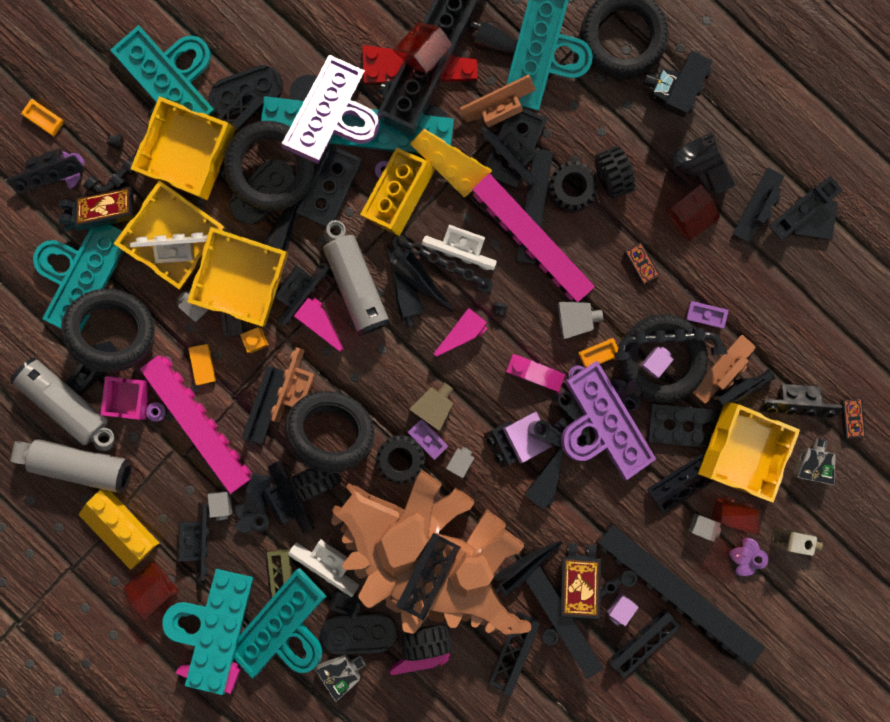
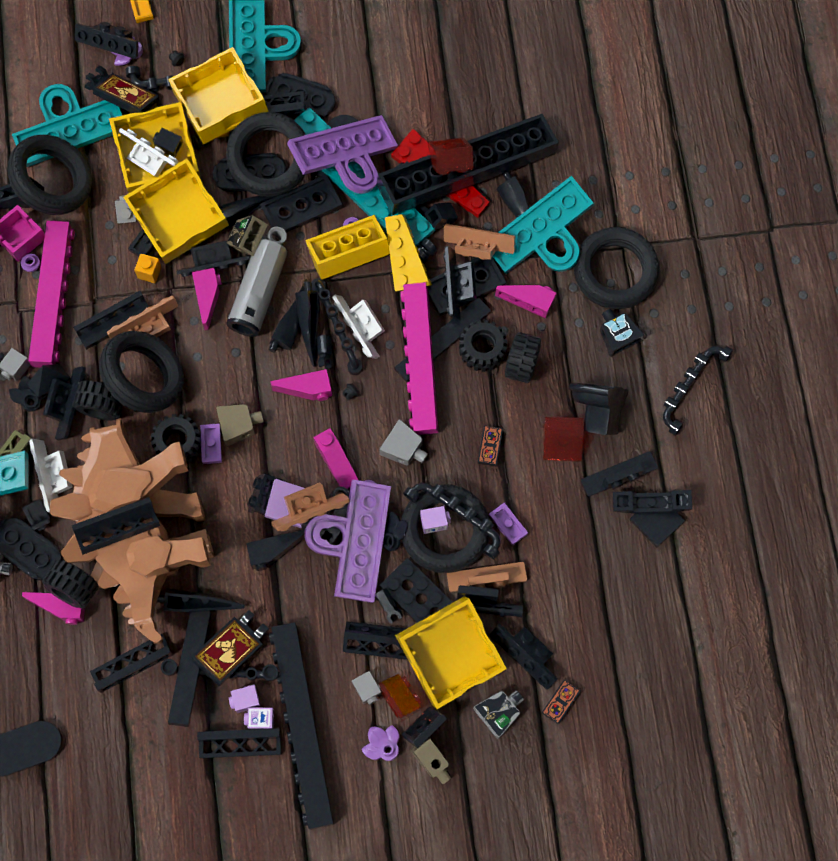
camera: 35 degrees right, 15 degrees down
(176, 222) = (168, 142): none -> black brick
(202, 364) = (94, 256): light orange tile -> none
(311, 250) = (247, 234): none -> dark tan torso
(450, 103) = (441, 214): none -> black brick
(452, 293) = (324, 351): none -> black bar
(460, 461) = (220, 480): light grey brick -> none
(461, 142) = (426, 250): none -> black wheel
(553, 431) = (308, 504): none -> nougat bracket
(580, 114) = (529, 297): none -> dark pink slope
(600, 352) = (397, 484): light orange tile -> none
(646, 615) = (259, 718): none -> brick
(667, 451) = (388, 604): none -> black bar
(688, 84) = (632, 336): black brick -> none
(751, 77) = (691, 375): none -> black bar
(774, 523) = (423, 727): none -> black tile

